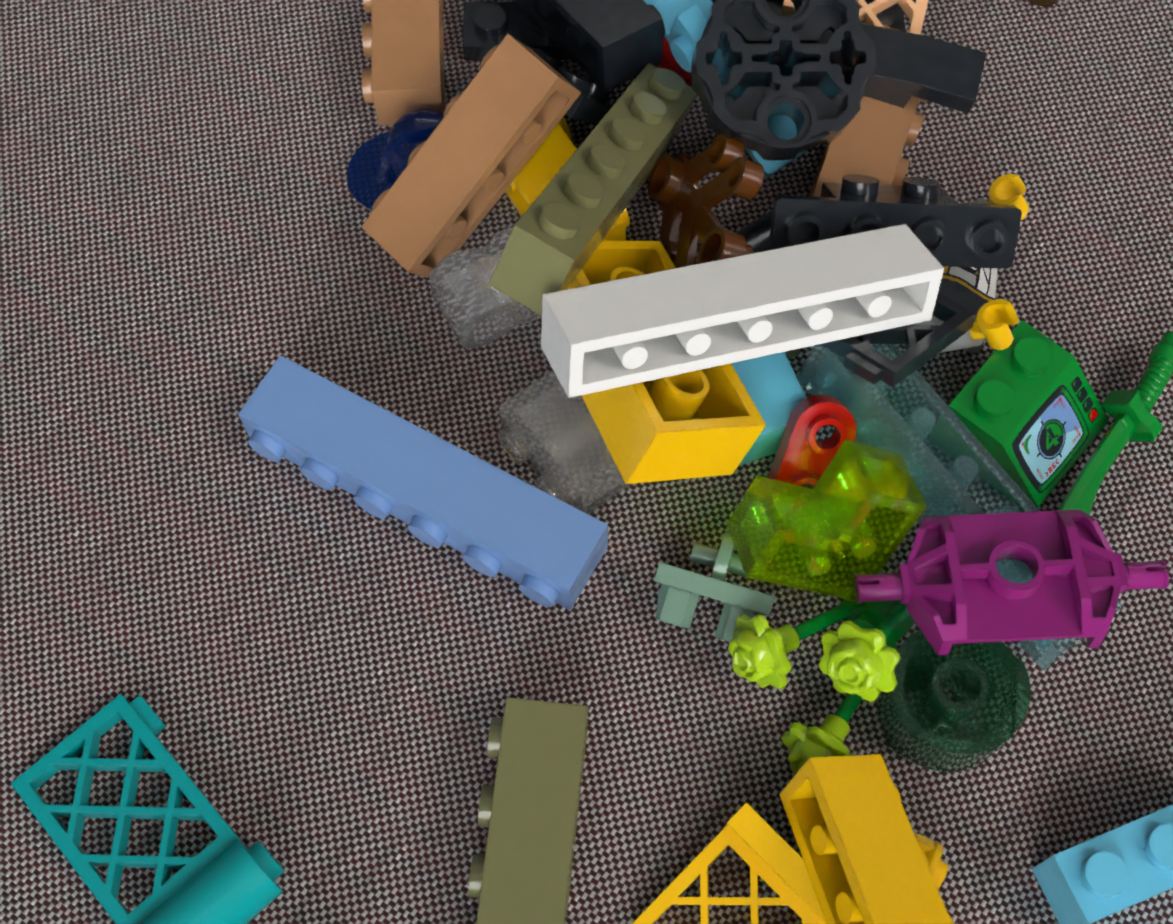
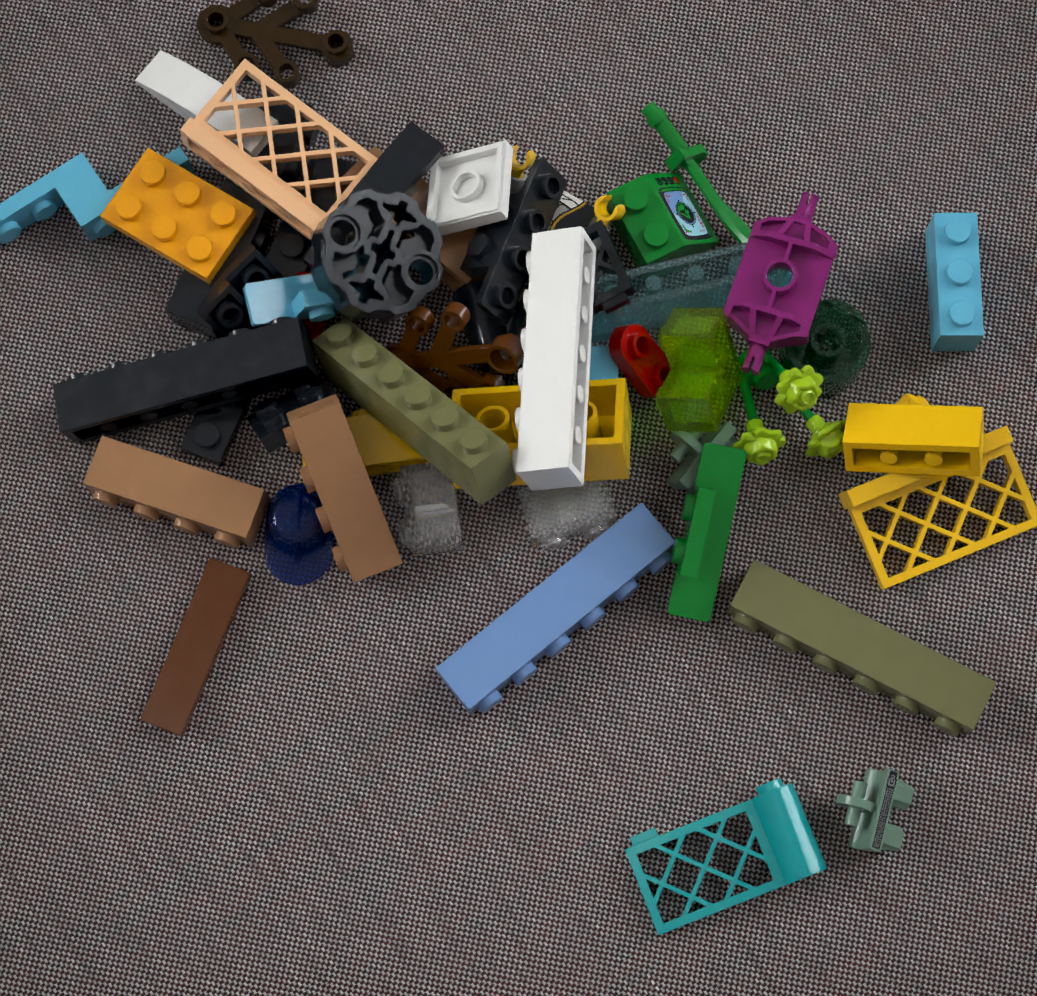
camera: 65 degrees left, 10 degrees up
(229, 109) = (196, 647): none -> reddish brown tile
(603, 623) = (706, 531): none -> green bracket
(933, 149) = (470, 188): none -> white plate

